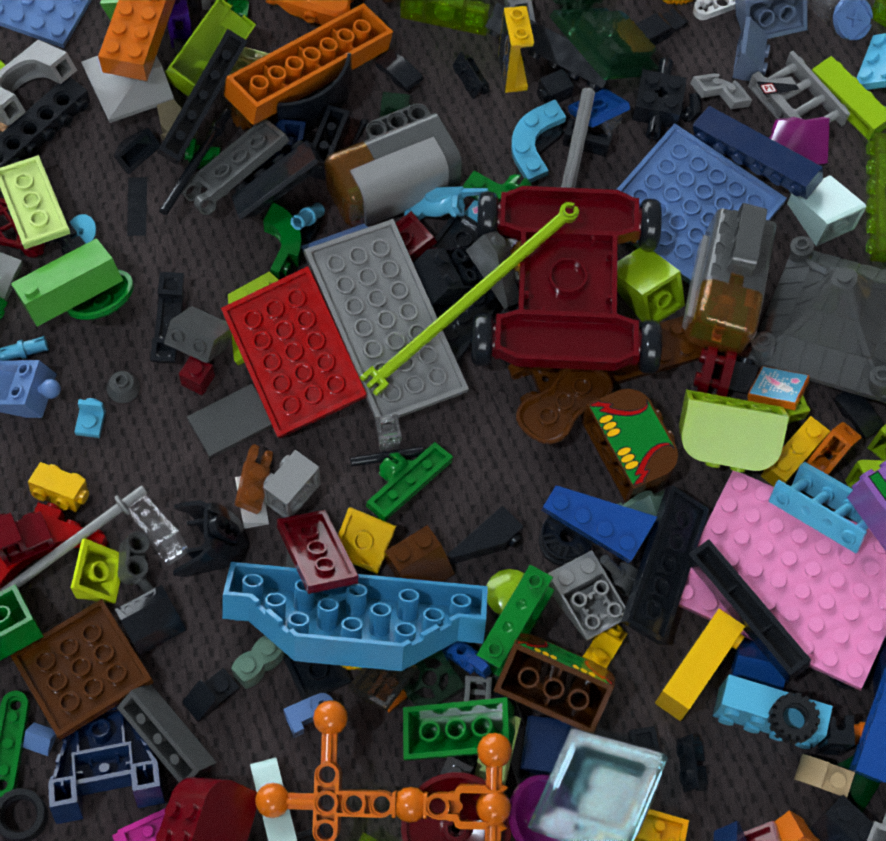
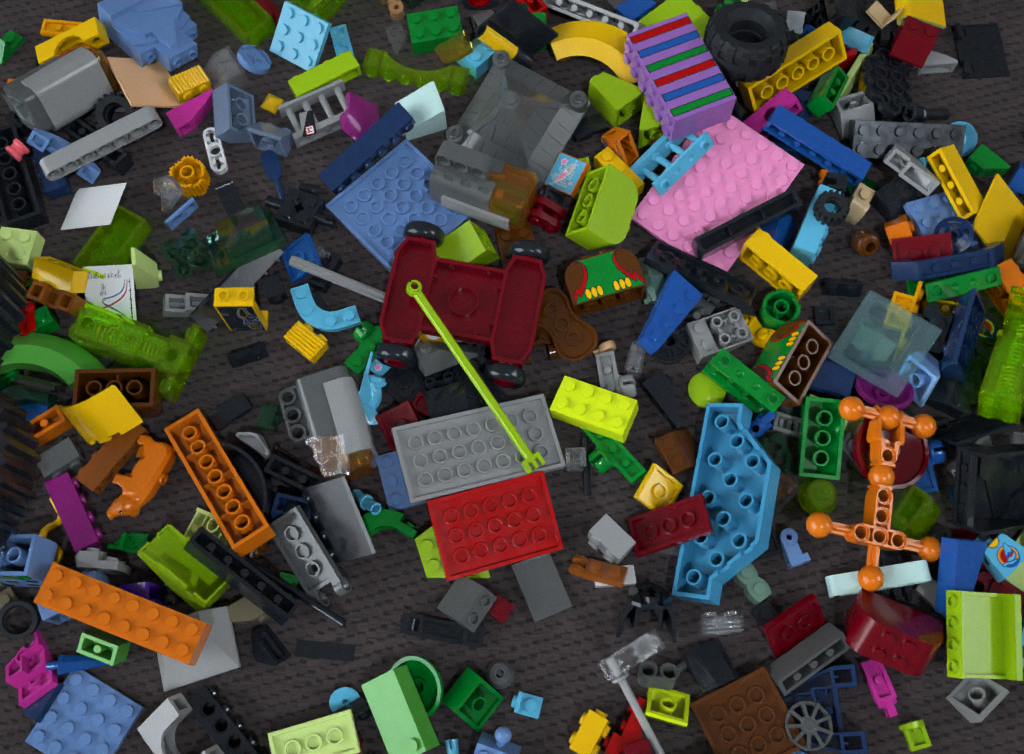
camera: 75 degrees left, 5 degrees up
(81, 736) = (809, 725): none -> dark grey wheel
(91, 359) = (472, 699): none -> green slope
(200, 630) = (714, 625): none -> clear brick
(208, 716) = (794, 625): none -> dark red tile
(341, 159) = (332, 462): none -> clear slope
(362, 101) = (255, 442): none -> light grey slope
(381, 744) = (817, 496): none -> clear neon green cone
(456, 449) = (594, 409): none -> neon yellow brick
(492, 476) = (610, 378): none -> light grey plate
(495, 131) = (306, 341): none -> yellow brick
(531, 498) = (634, 360): none -> clear leg
(546, 462) = (605, 347): none -> light nougat piece
(650, 669) = (778, 300): none -> green brick
(711, 63) = (273, 170): none -> dark blue piece
(731, 93) = (294, 170): light grey plate -> none
(764, 789) = (865, 242): none -> reddish brown head
(802, 49) = (271, 103): none -> yellow slope

